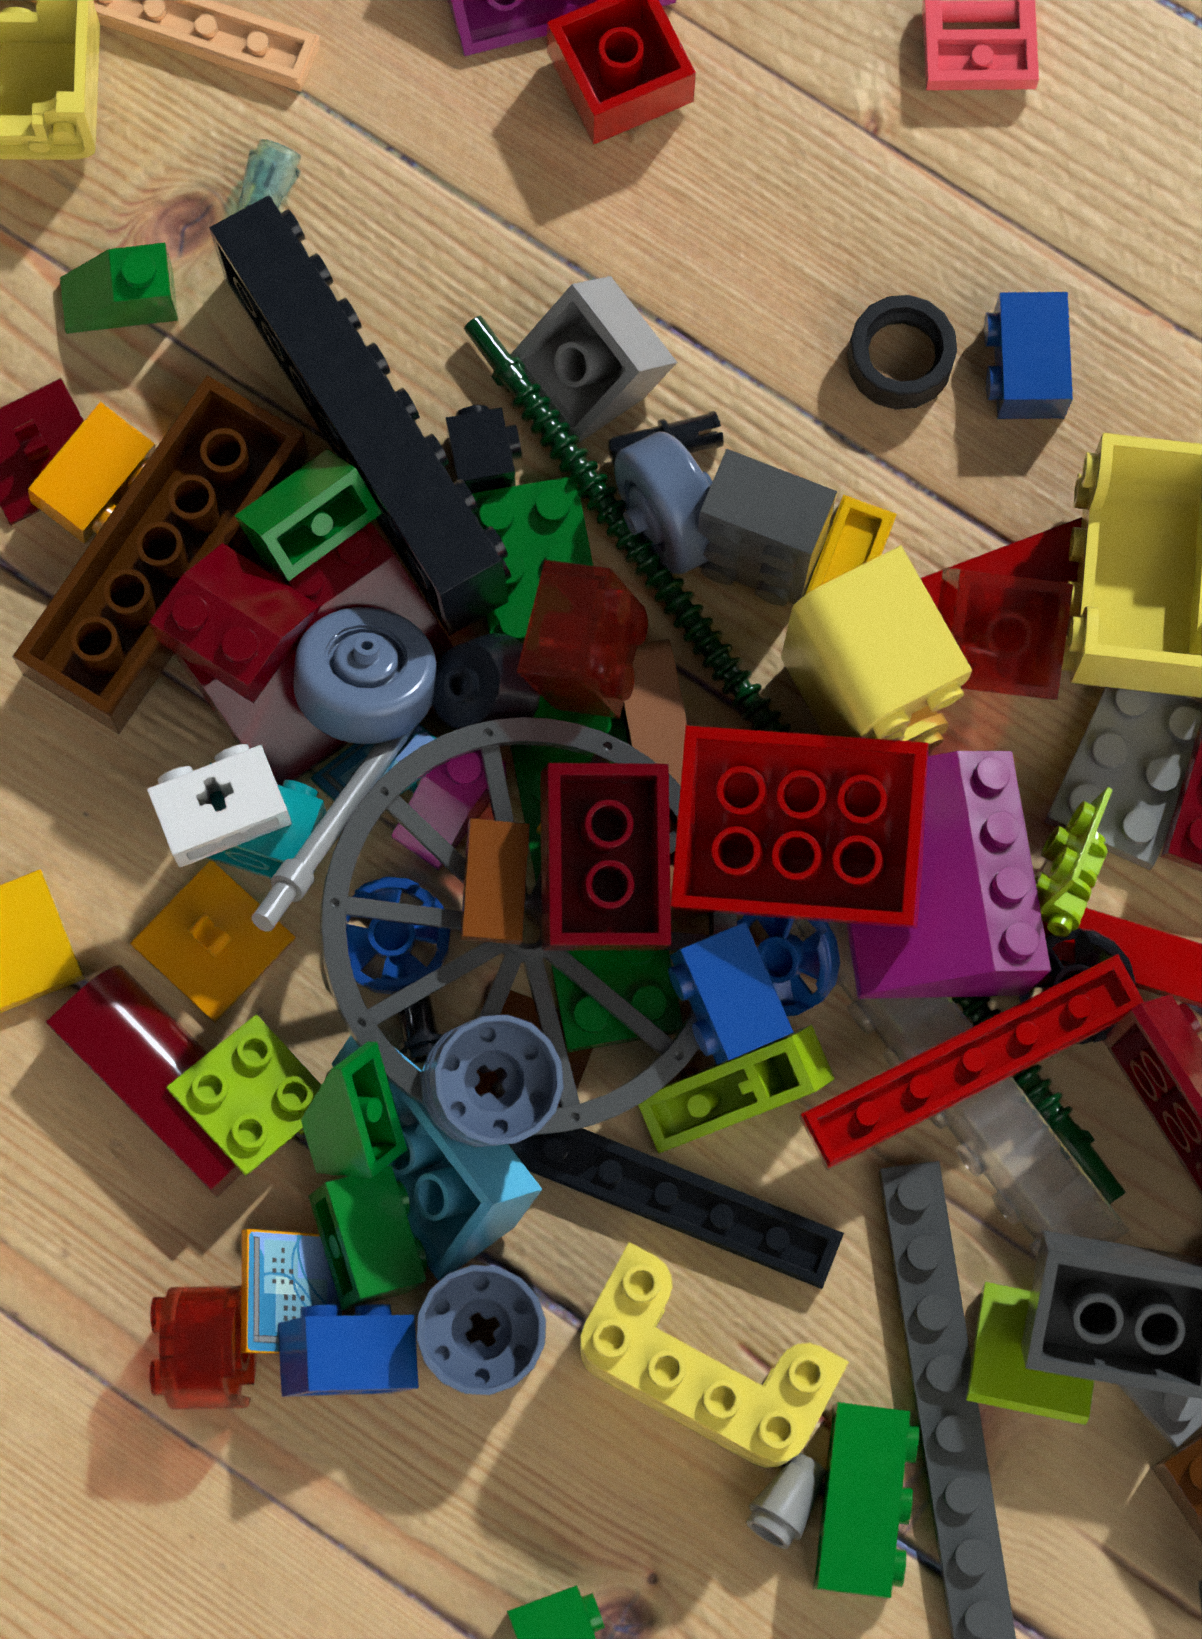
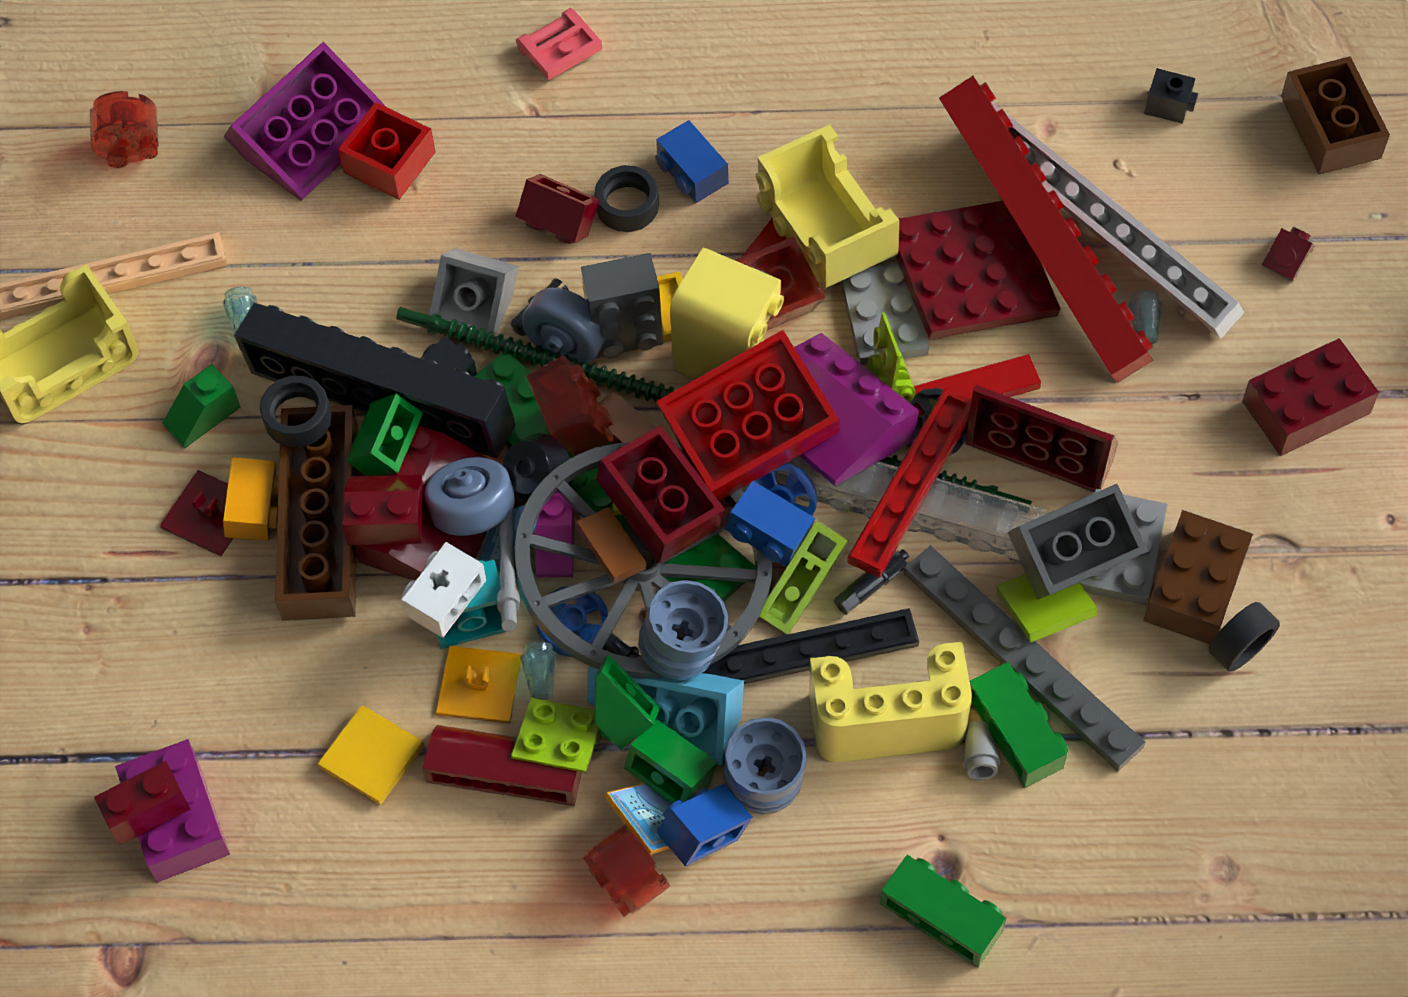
camera: 30 degrees left, 15 degrees down
(212, 355) = (287, 389): none -> black tyre
(296, 980) = (539, 668): none -> clear light blue cone
(790, 307) = (557, 209): none -> dark red brick
(802, 1160) = (868, 584): none -> black piece

